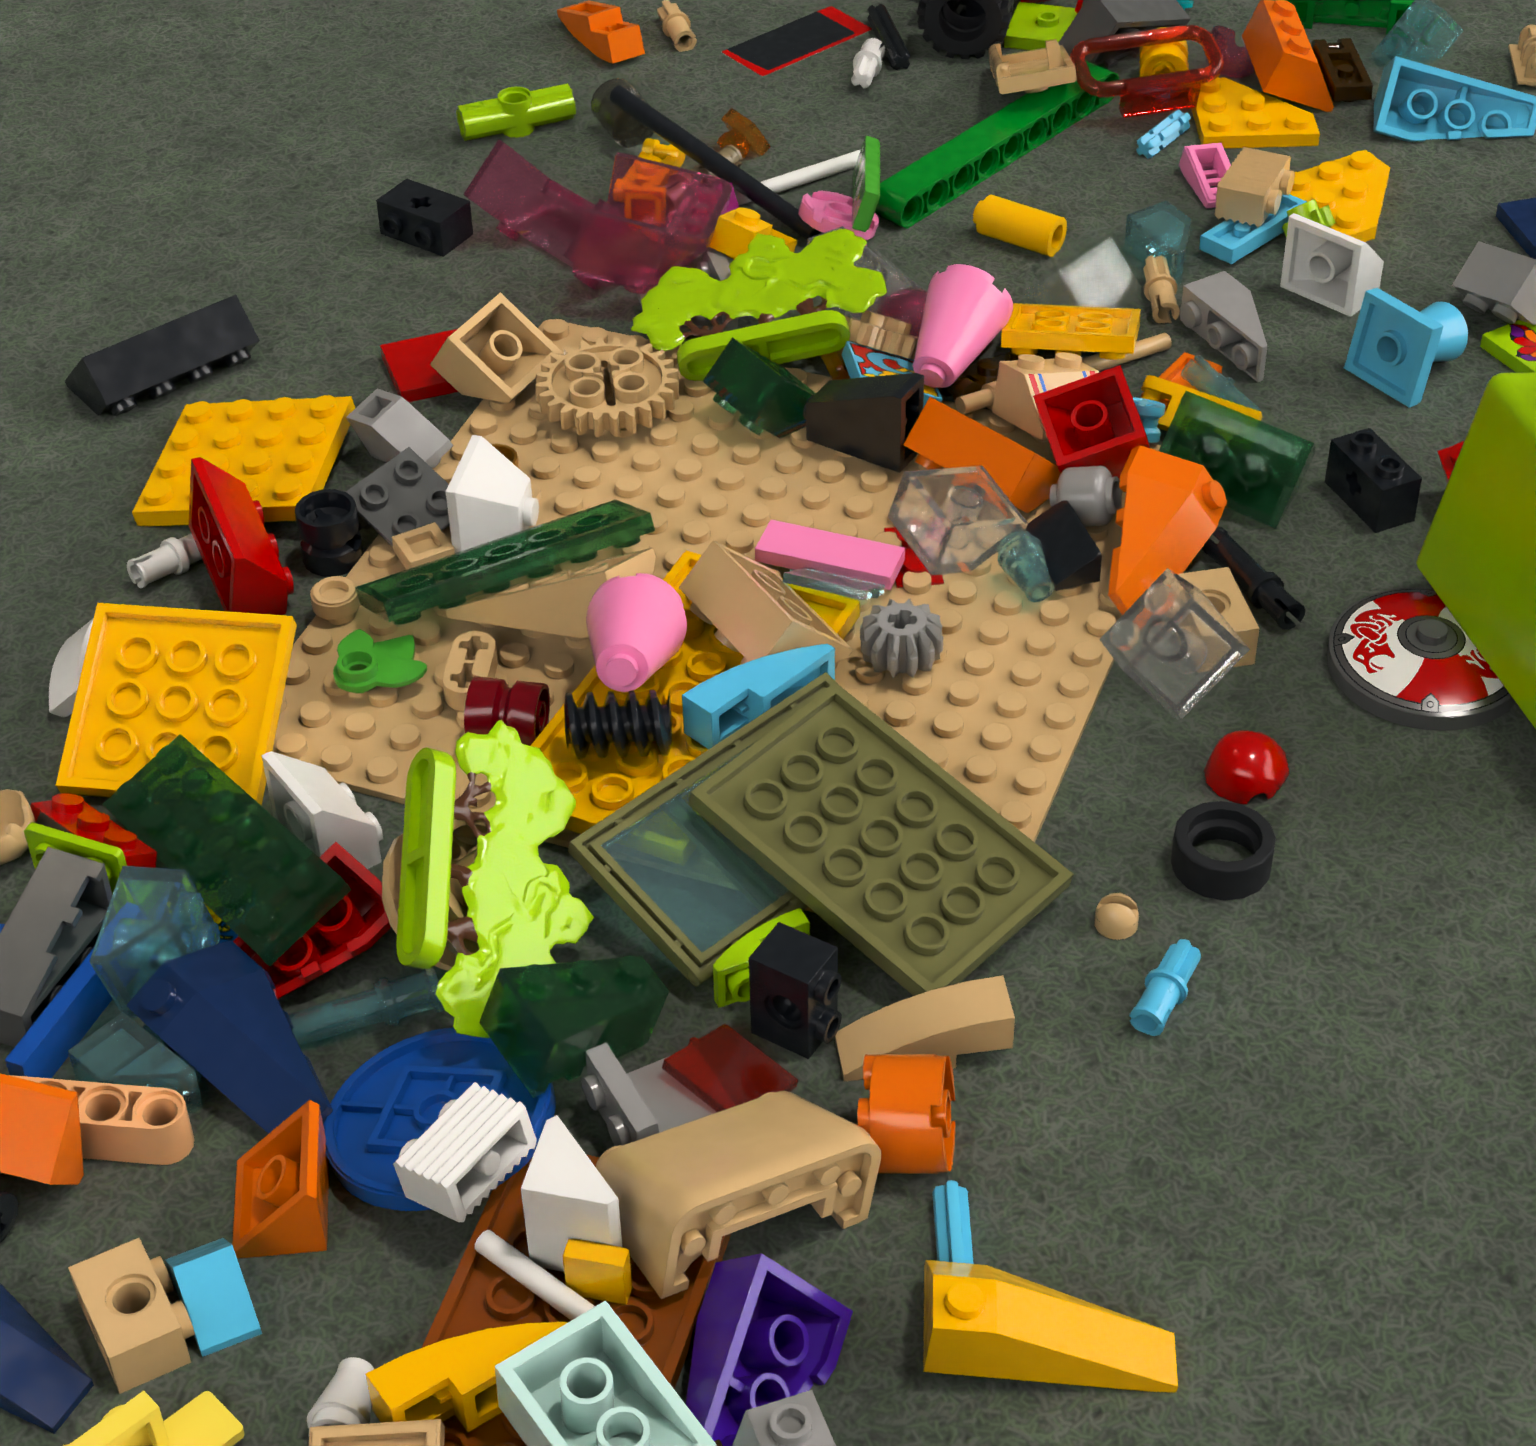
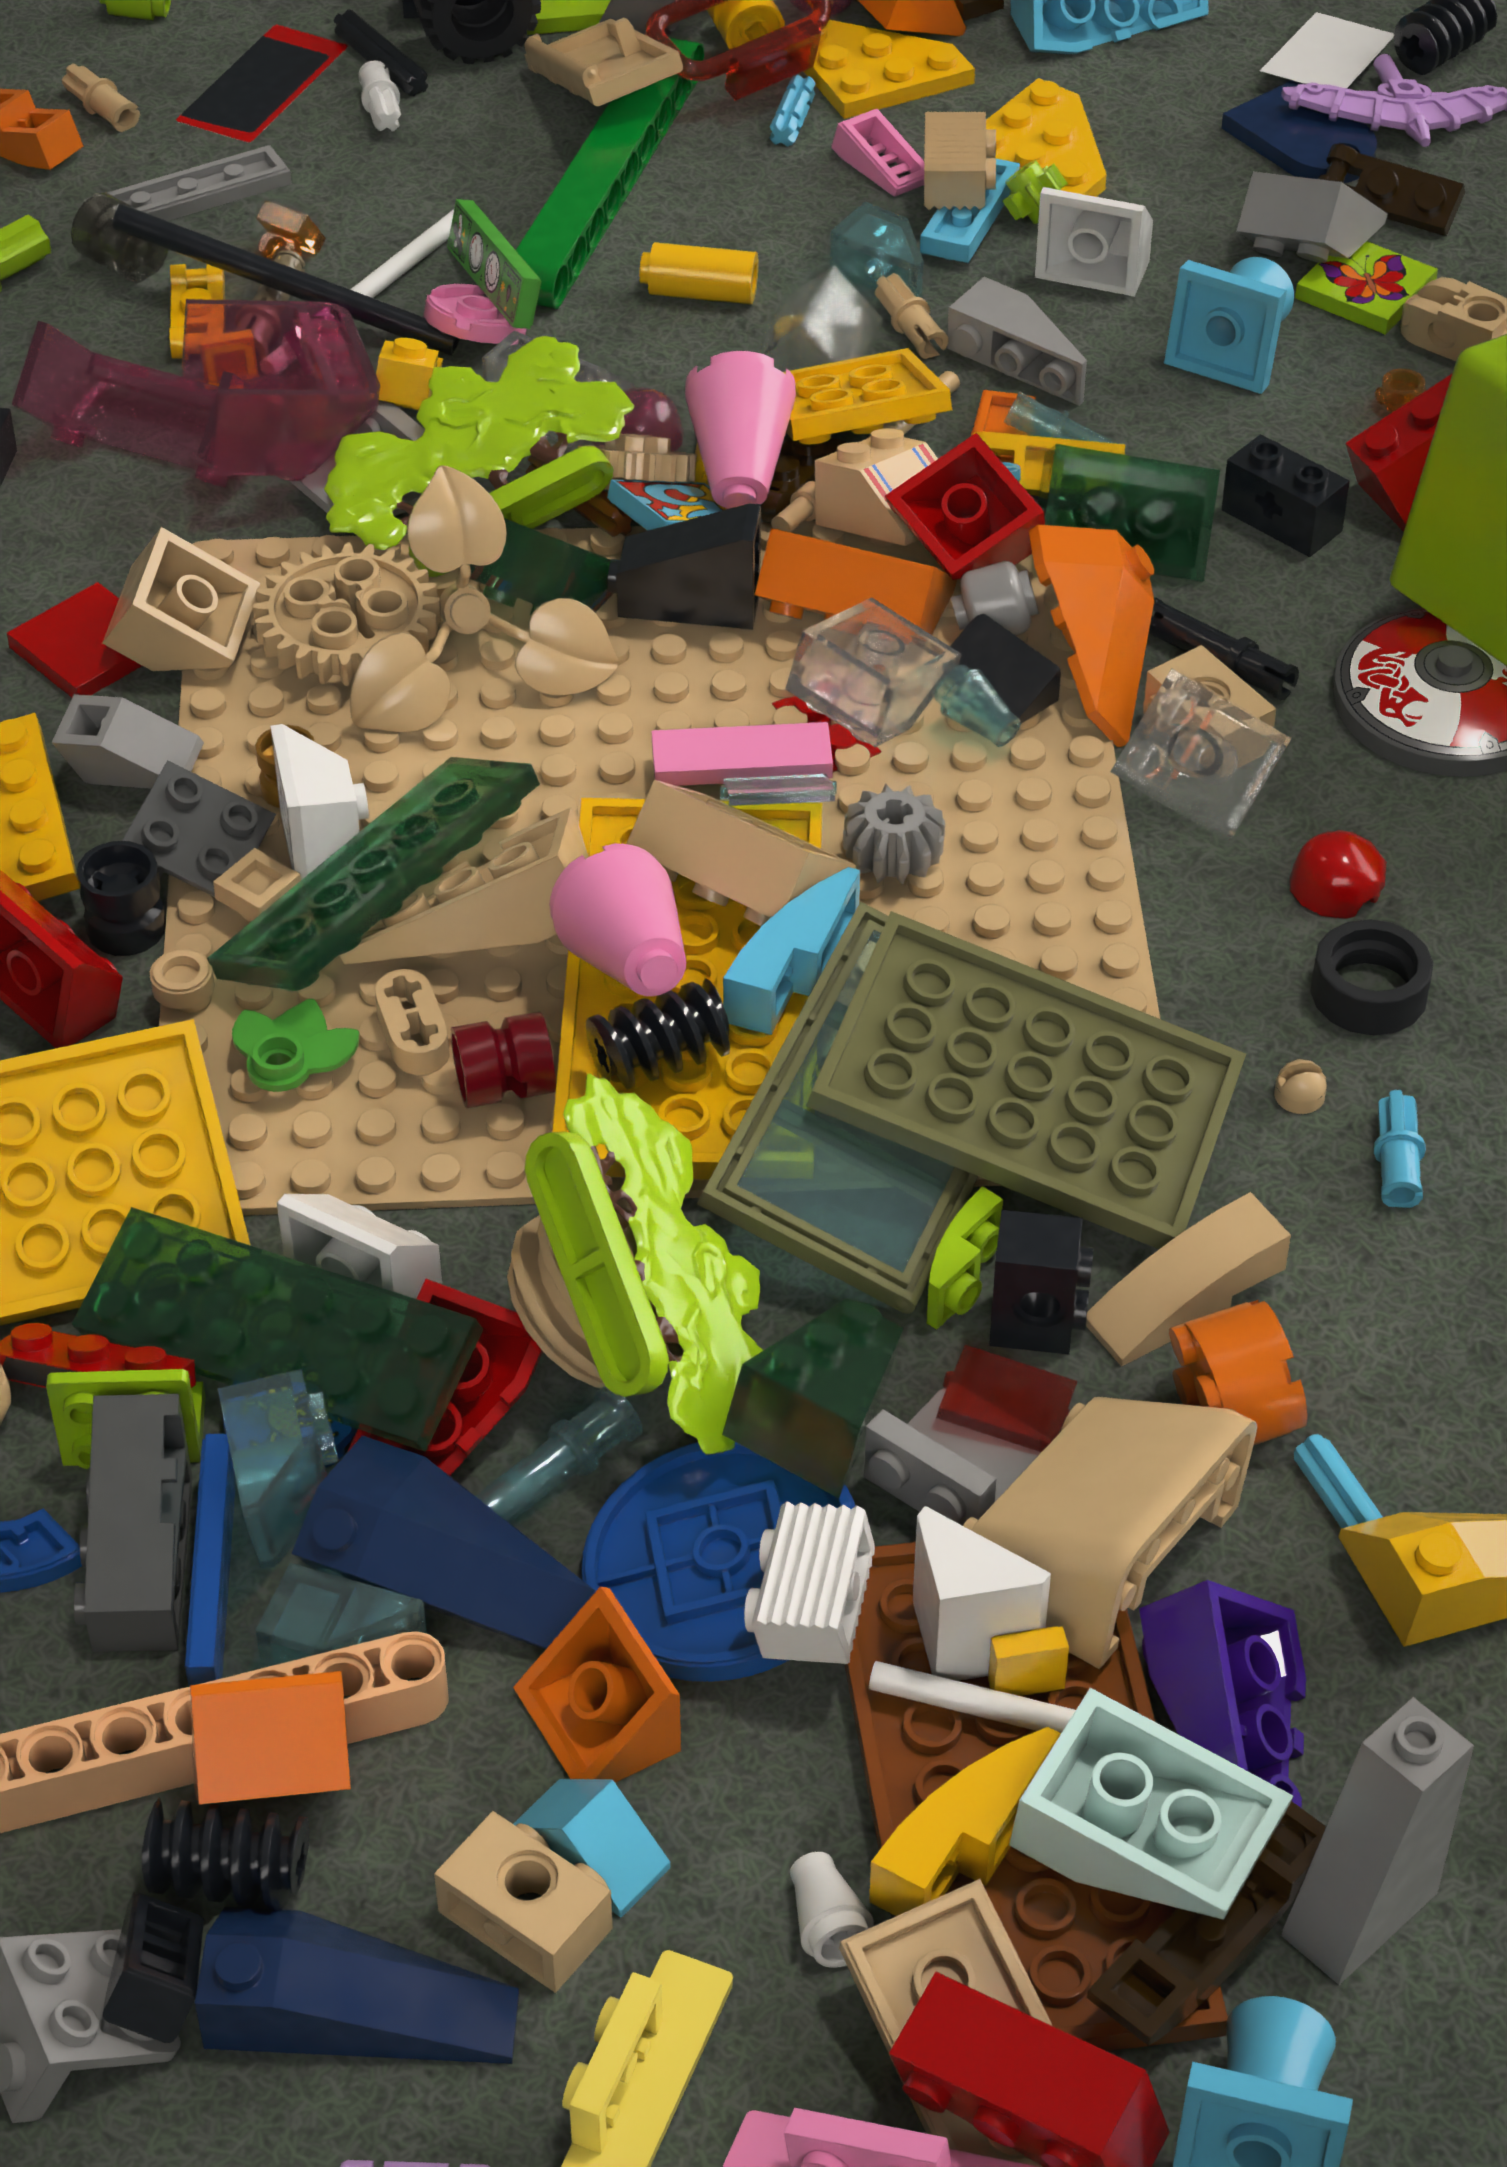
camera: 25 degrees left, 5 degrees up
(685, 335) = (450, 529): none -> tan plant
(708, 95) = (208, 184): none -> light grey tile

